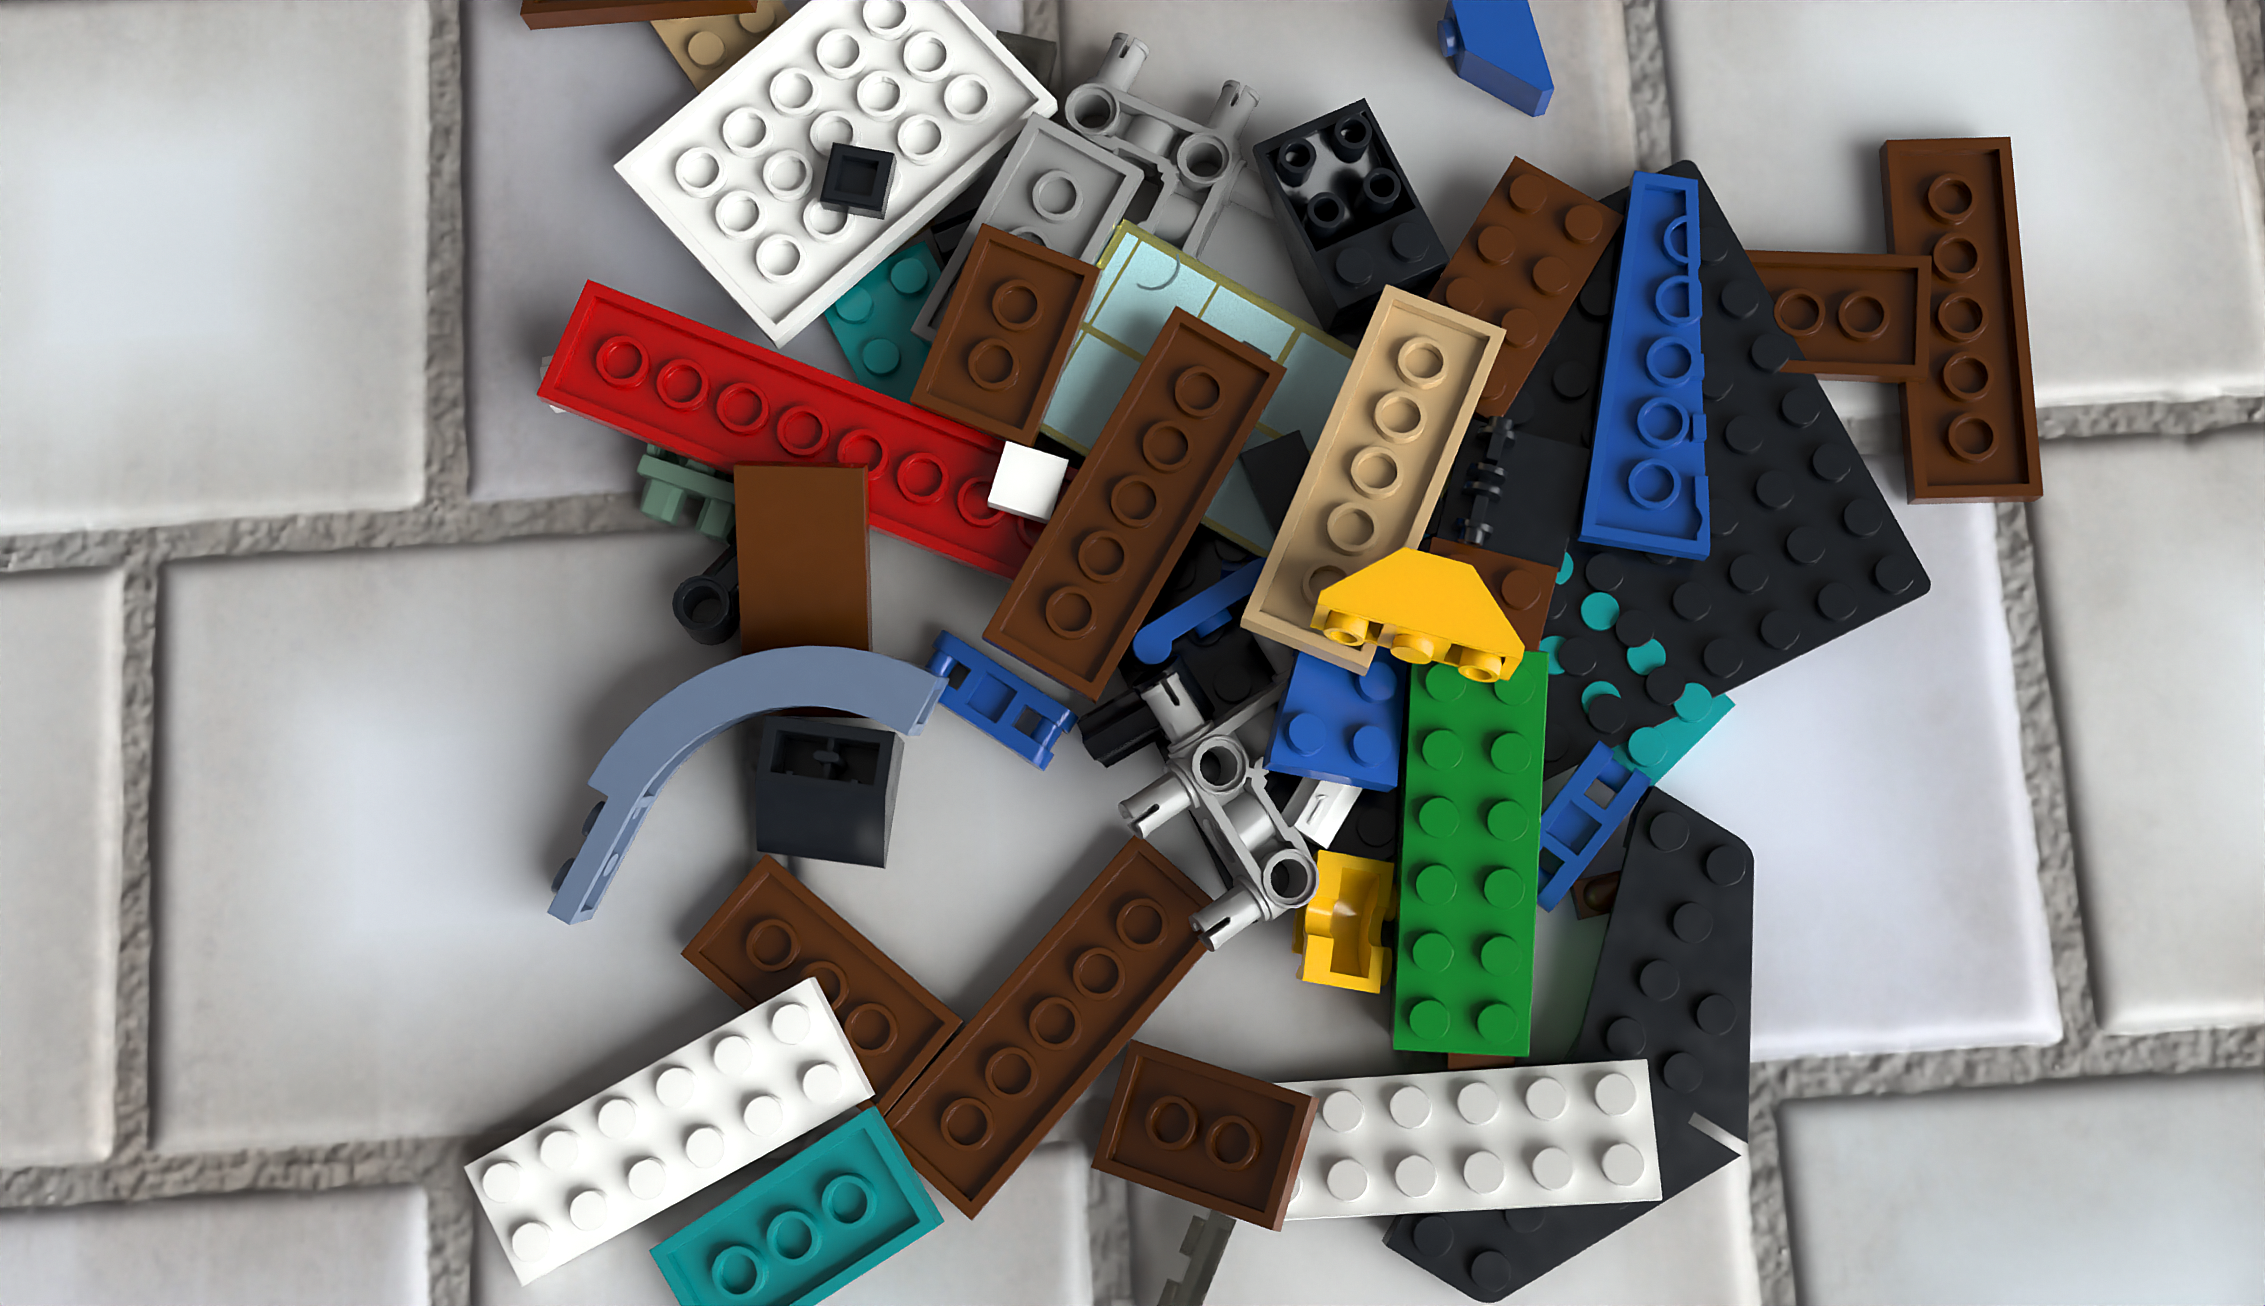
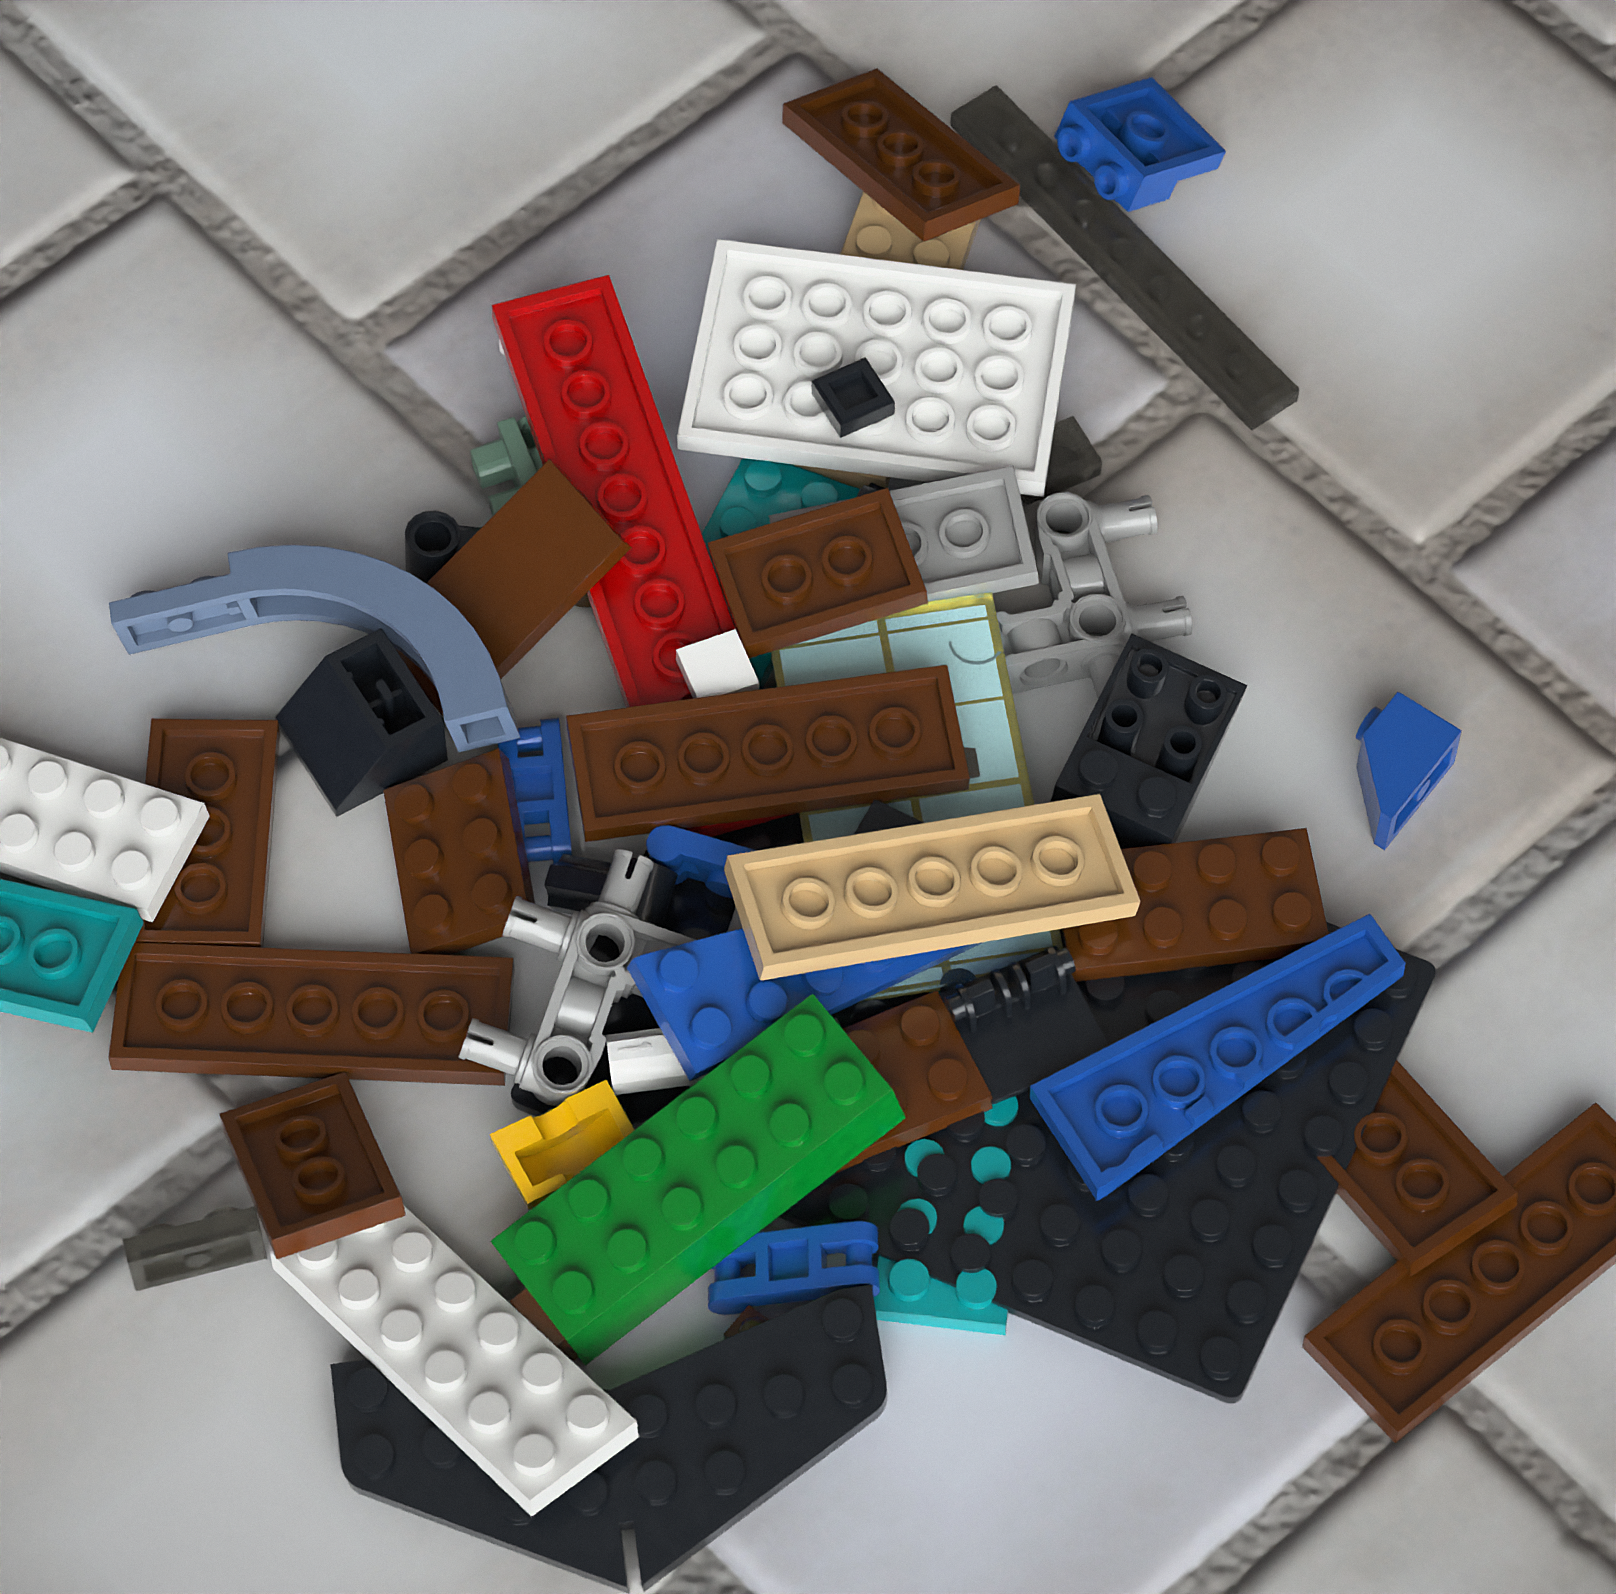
camera: 45 degrees right, 20 degrees down
(1009, 803) = (458, 853): none -> reddish brown plate
(1423, 613) = (832, 956): yellow slope -> none

